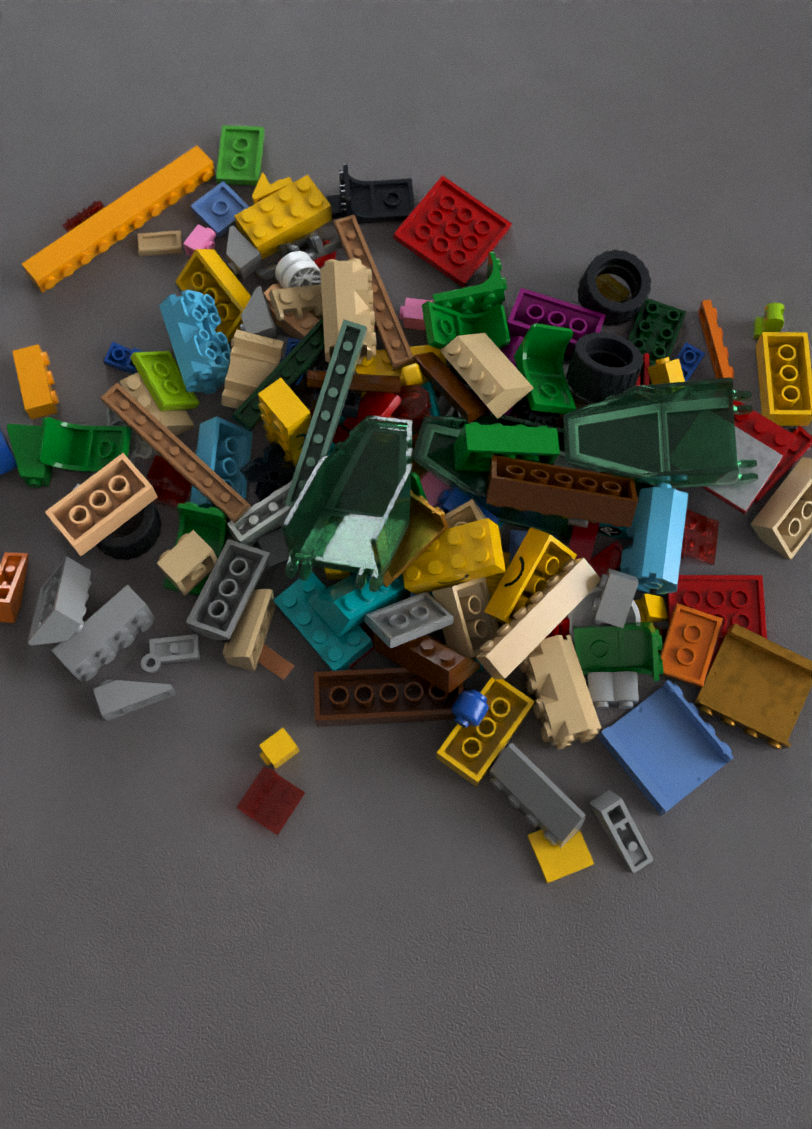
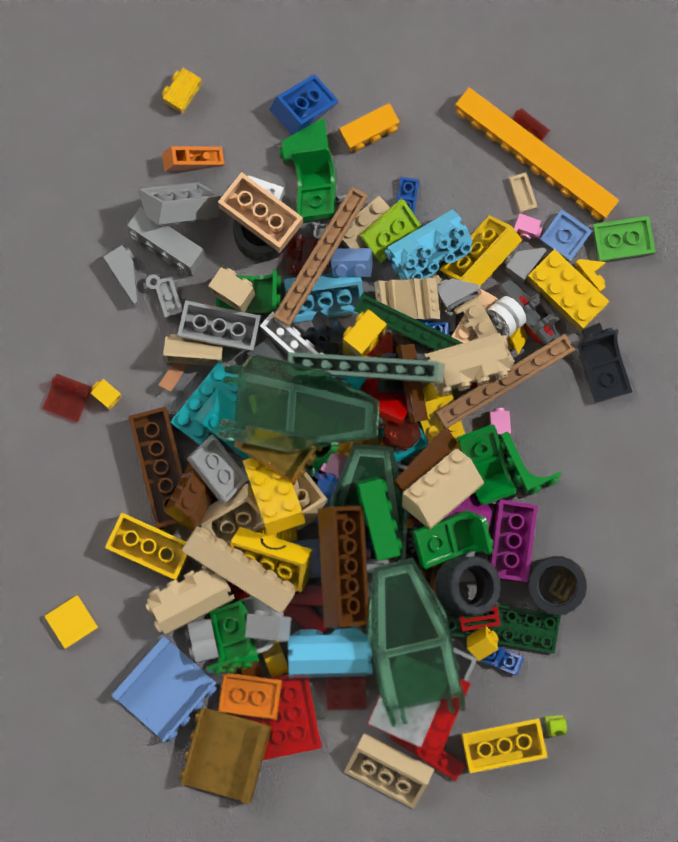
camera: 75 degrees right, 10 degrees up
(192, 423) = (352, 262): none -> medium blue brick
(412, 375) = (429, 430): yellow piece -> none
(452, 231) = (587, 437): red plate -> none
(470, 708) = (157, 529): blue head -> none
(536, 796) = (103, 594): light grey slope -> none
(621, 830) = (93, 664): light grey slope -> none
(713, 337) = (535, 680): orange plate -> none

